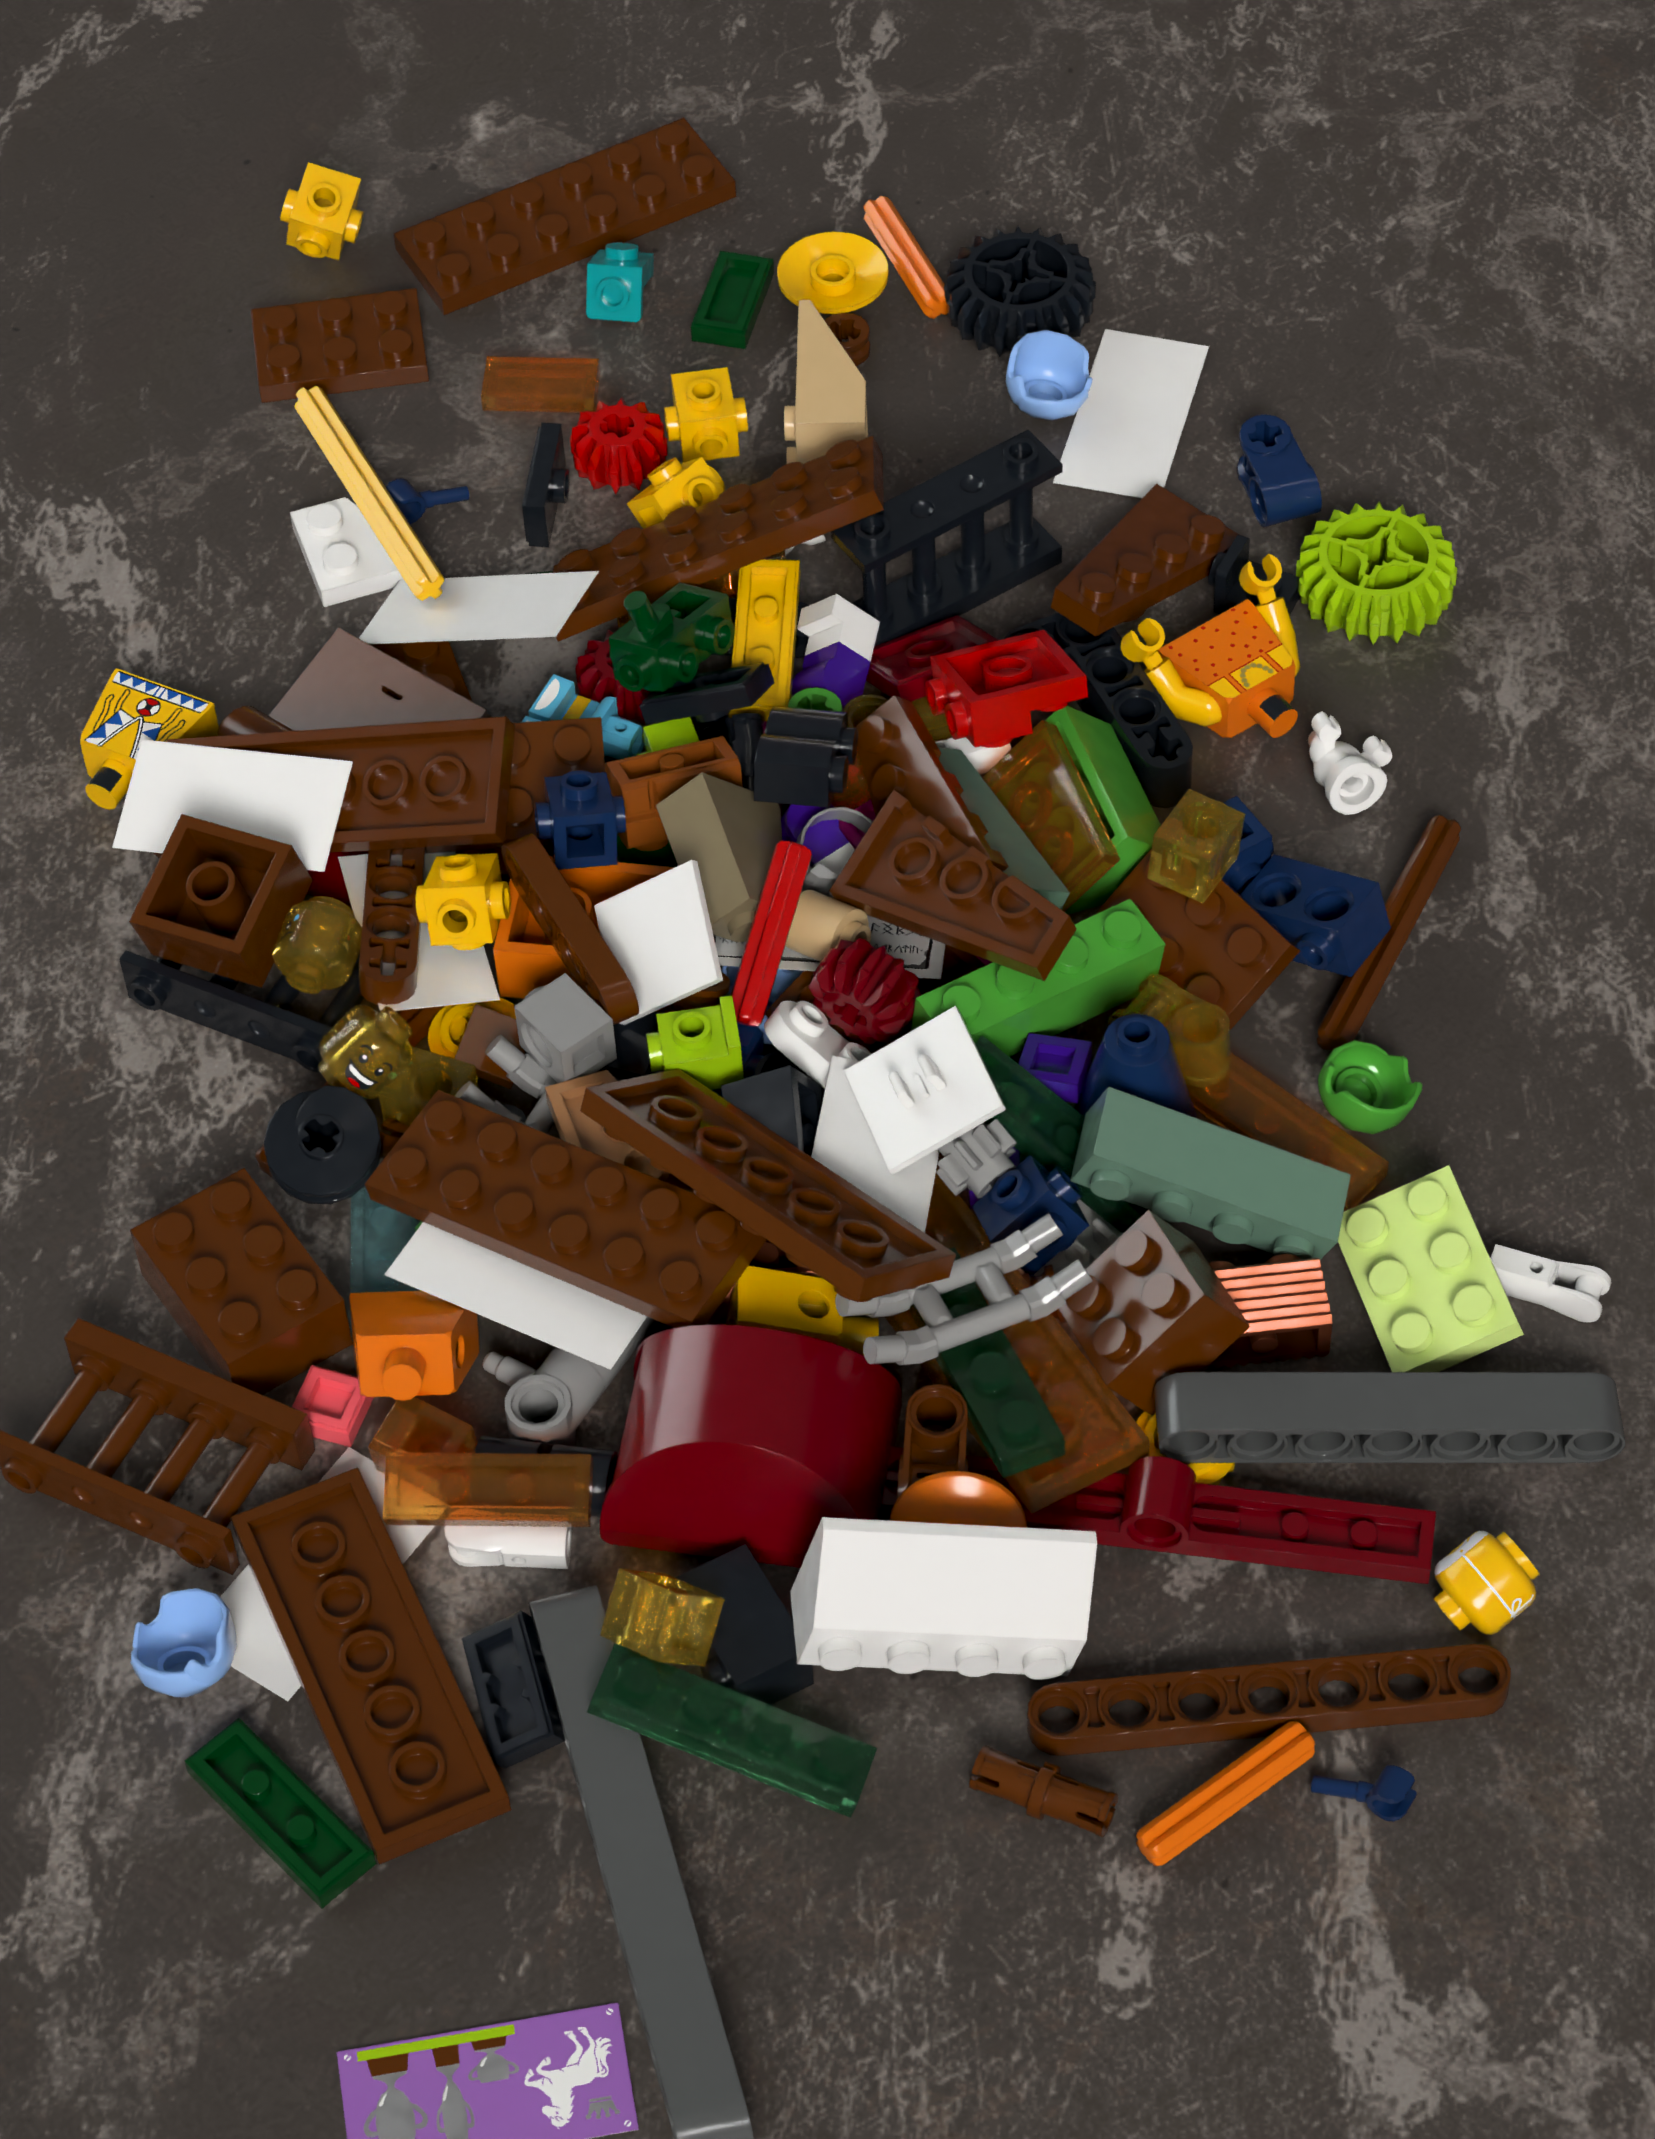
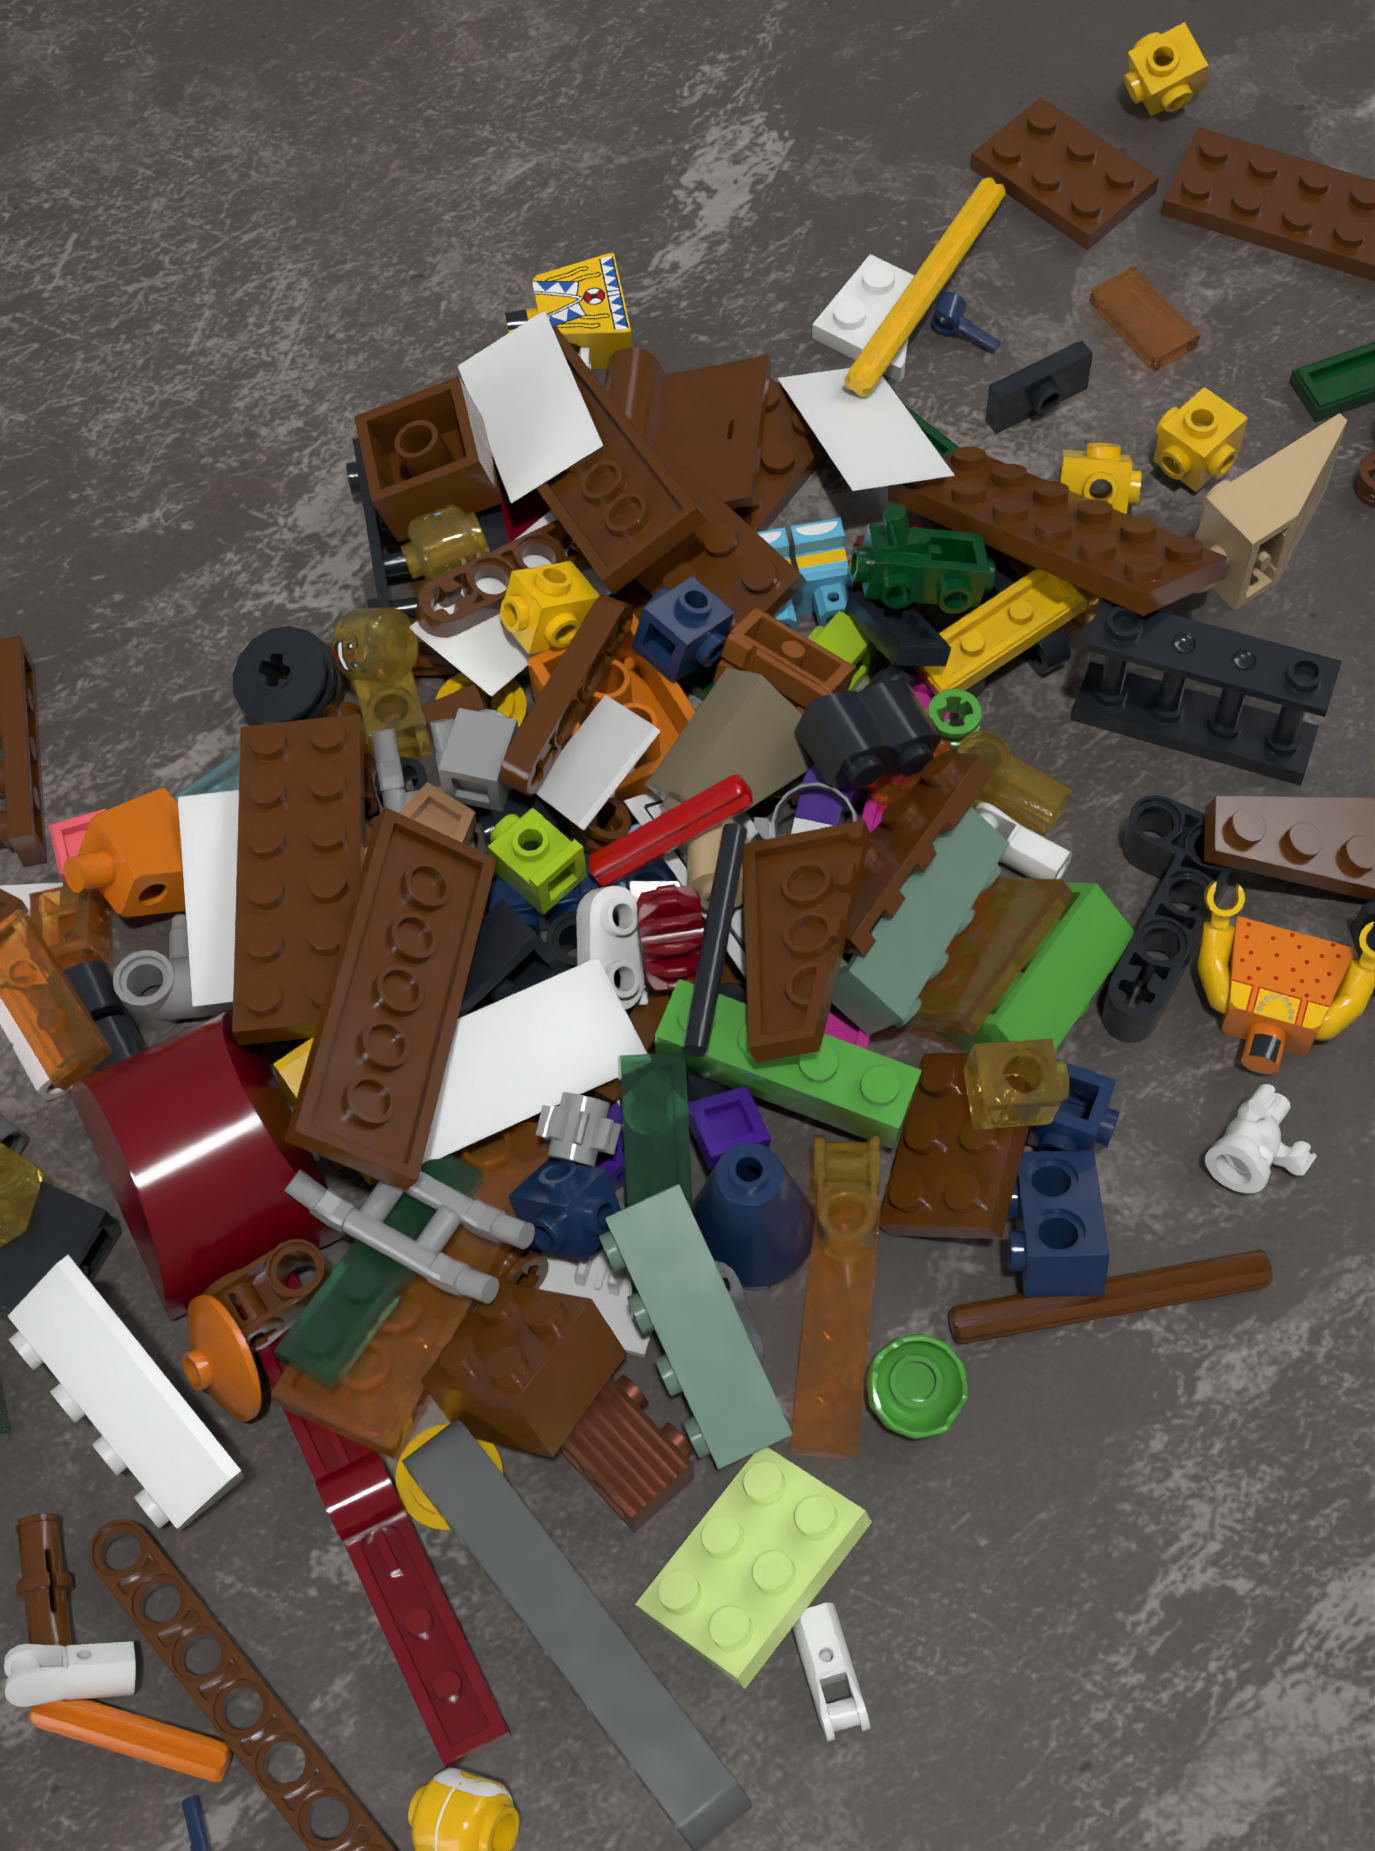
camera: 55 degrees right, 10 degrees up
(242, 1285) = (131, 713): reddish brown brick -> none
(617, 282) = (1290, 289): teal bracket -> none
(618, 445) = (1121, 405): red gear -> none
(837, 647) = (1034, 692): leg -> none
(905, 664) = (1091, 760): dark red tile -> none
(909, 947) = (714, 941): none -> black bar
(924, 1090) = (595, 1047): white piece -> none
(997, 684) = (1074, 825): red plate -> none
(1144, 1794) = (72, 1672): none -> white bar

